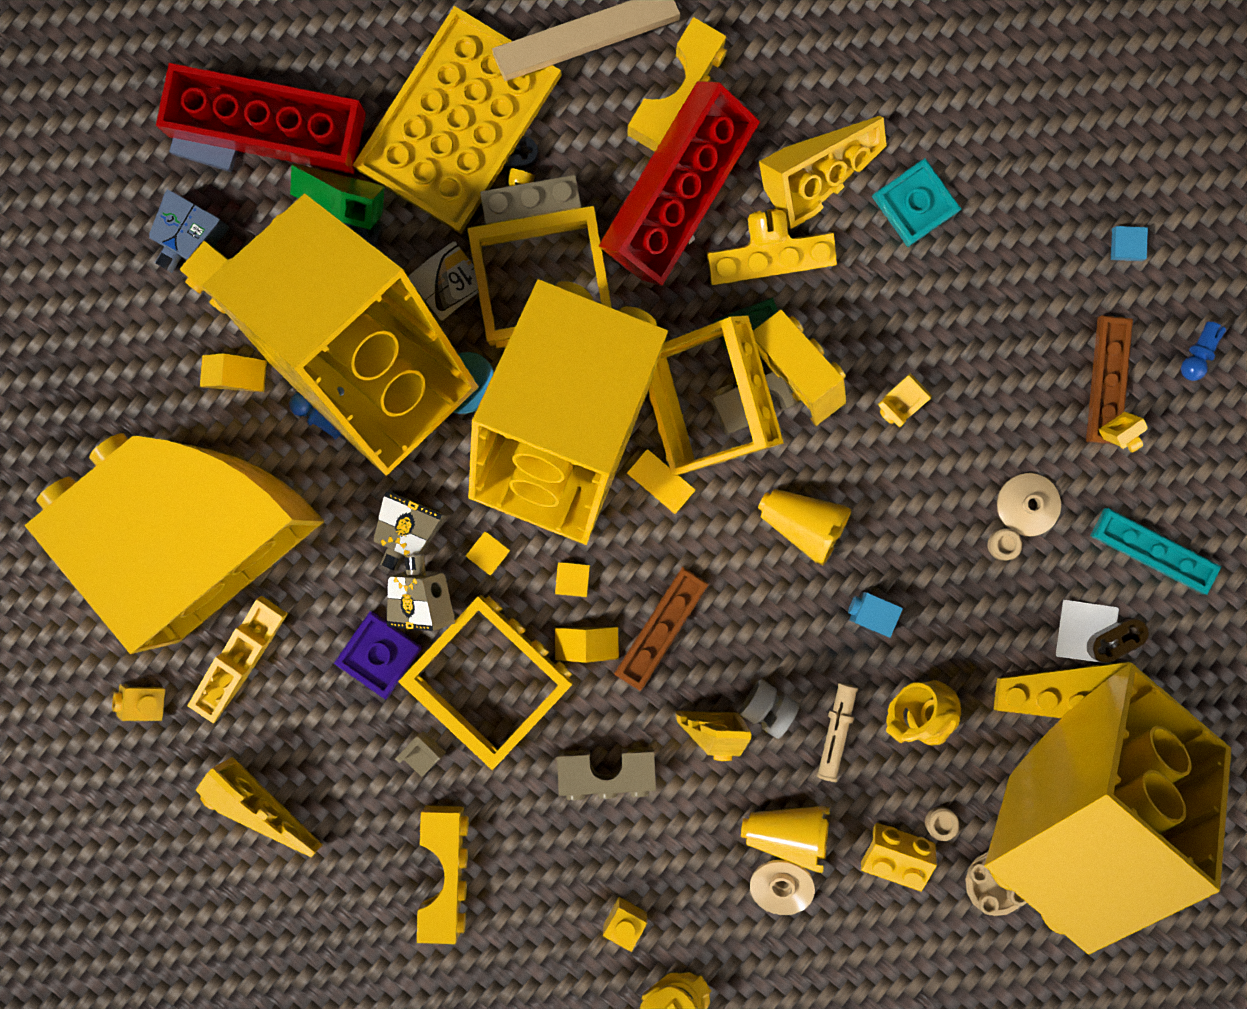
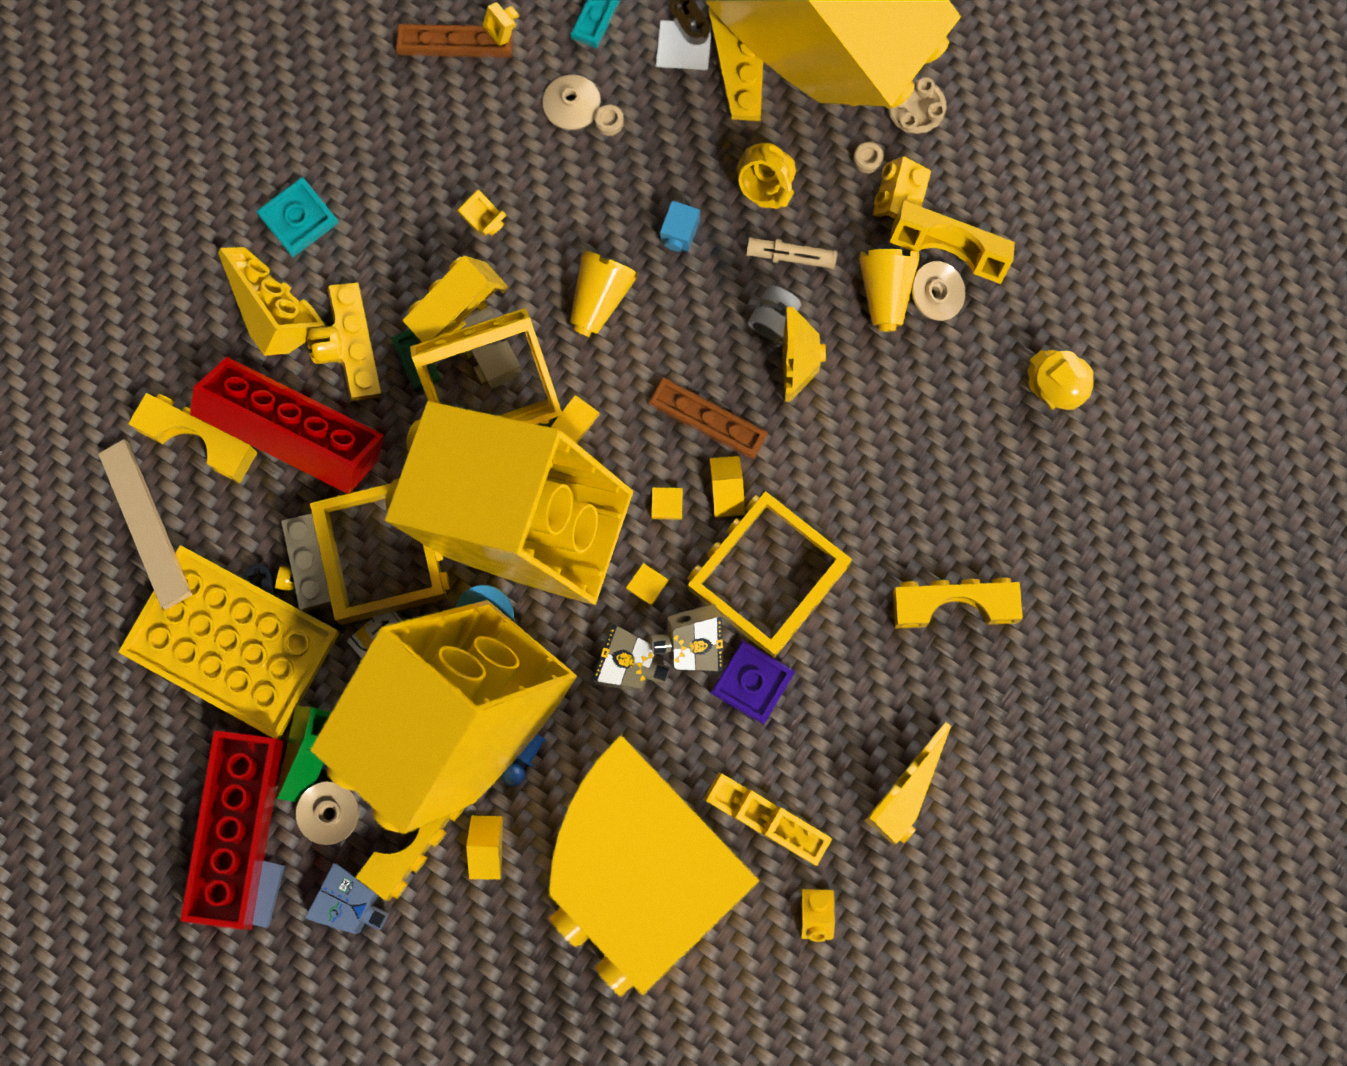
camera: 90 degrees left, 10 degrees down
(265, 204) = (312, 808): none -> tan dish
(421, 753) = (844, 632): dark tan panel -> none
(579, 777) = (845, 431): dark tan arch -> none
(625, 924) = (986, 429): yellow brick -> none
(821, 941) = (982, 251): none -> yellow arch
(1129, 243) = (329, 31): dark azure tile -> none

